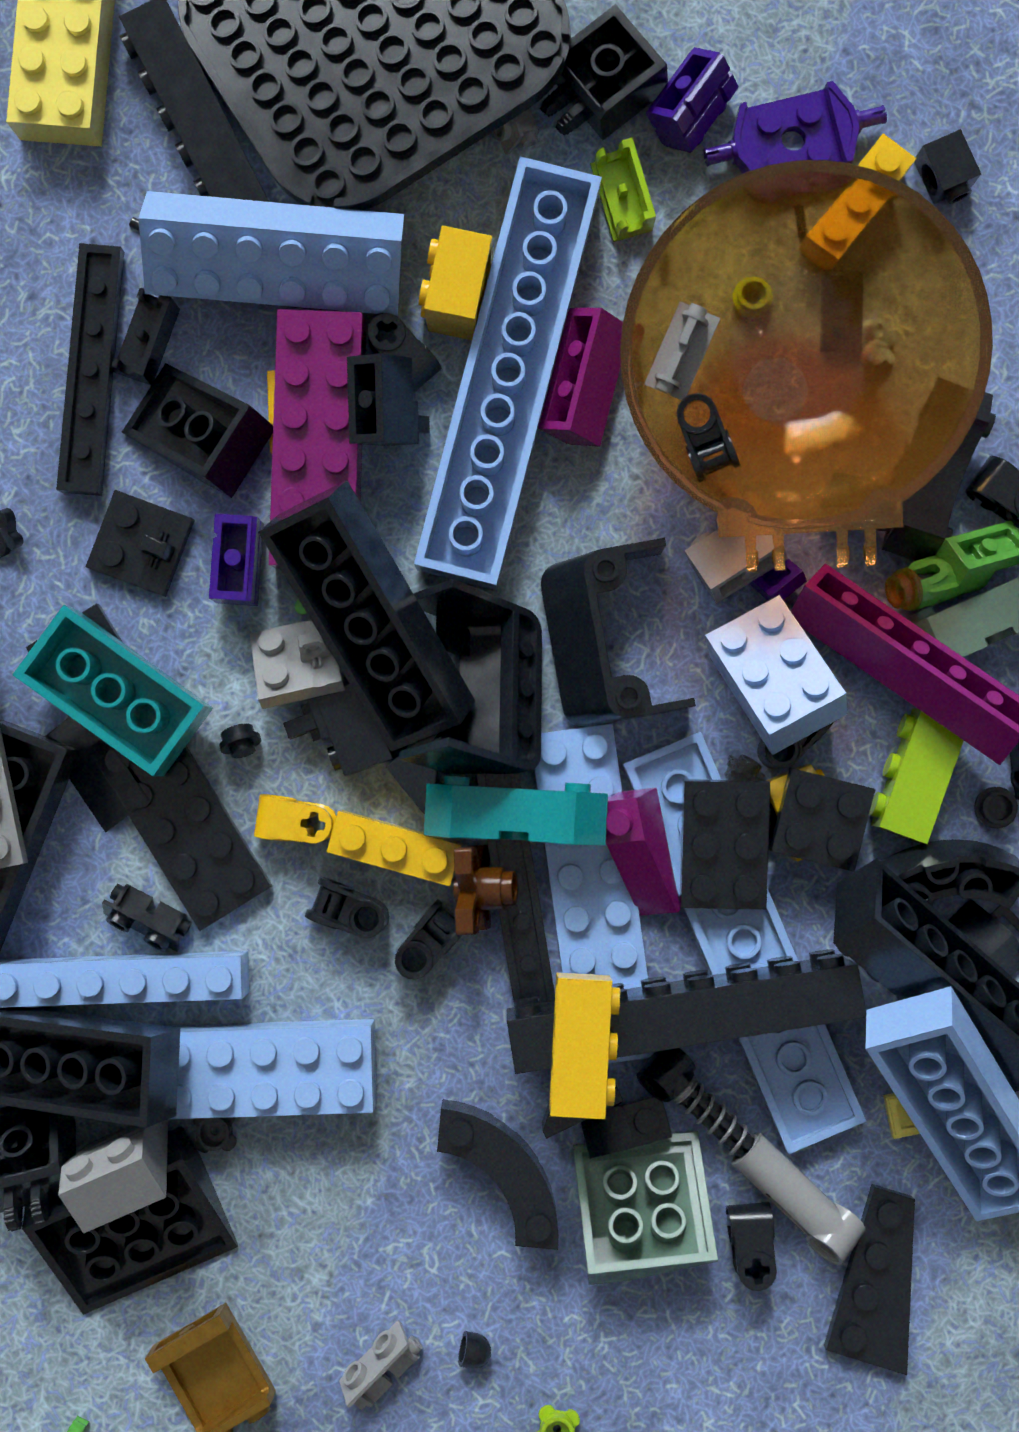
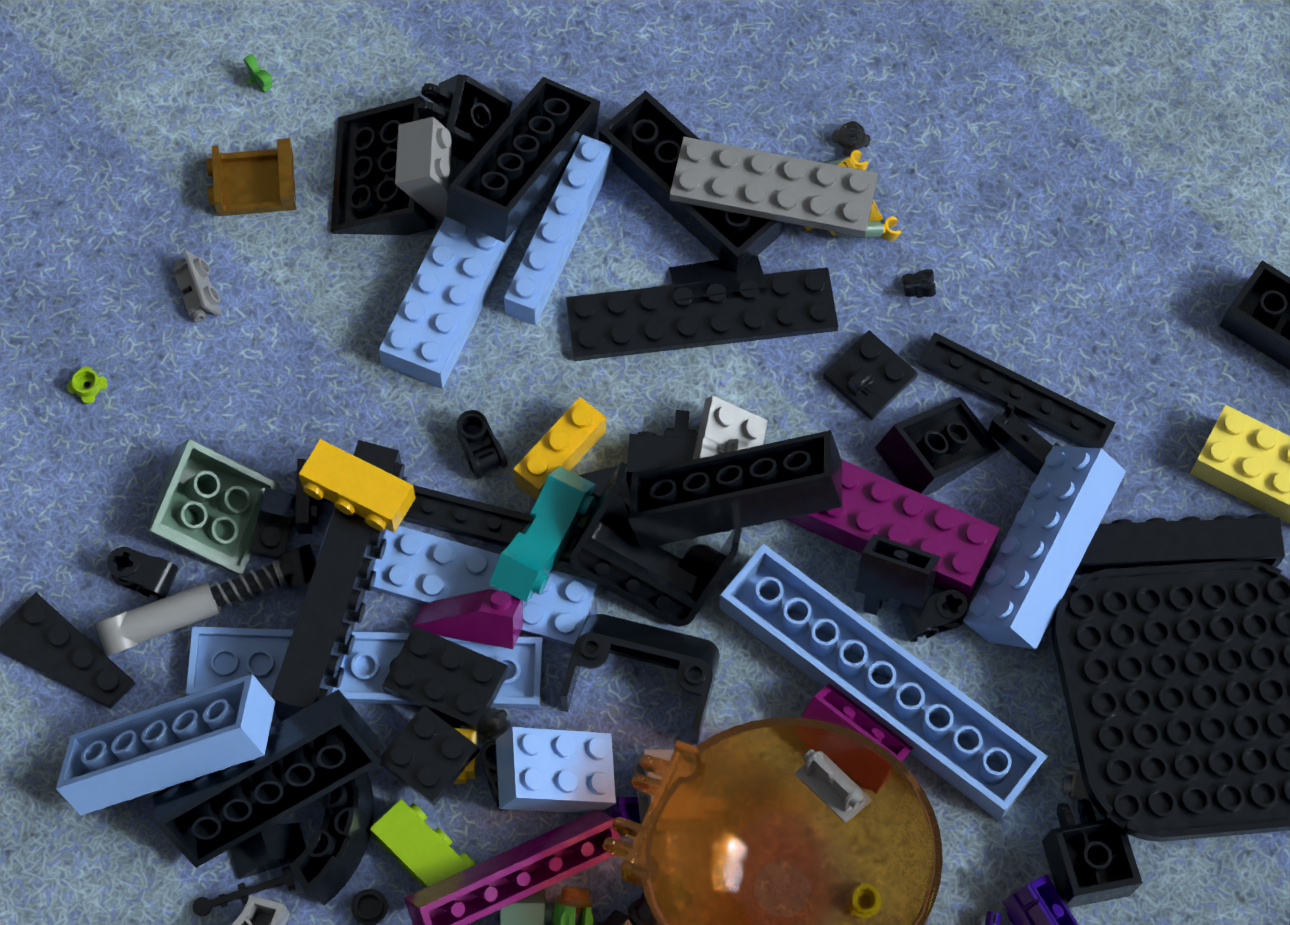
camera: 115 degrees right, 20 degrees down
(112, 691) = (764, 303): teal brick -> none
(131, 912) = (603, 258): black hinge -> none
(208, 1141) = (413, 243): black plate -> none
(236, 560) = (815, 417): dark purple brick -> none
(239, 740) = (690, 379): black plate -> none
(286, 819) = (618, 388): yellow piece -> none
(345, 909) = (535, 397): black piece -> none
(457, 283) = (970, 666): yellow brick -> none
(473, 1350) = (173, 353): black hinge -> none
(480, 889) = (499, 488): reddish brown plant -> none
(509, 1162) = (291, 429): black brick -> none
(624, 191) = (992, 839): lime hinge -> none
(706, 439) = (758, 772): black piece -> none

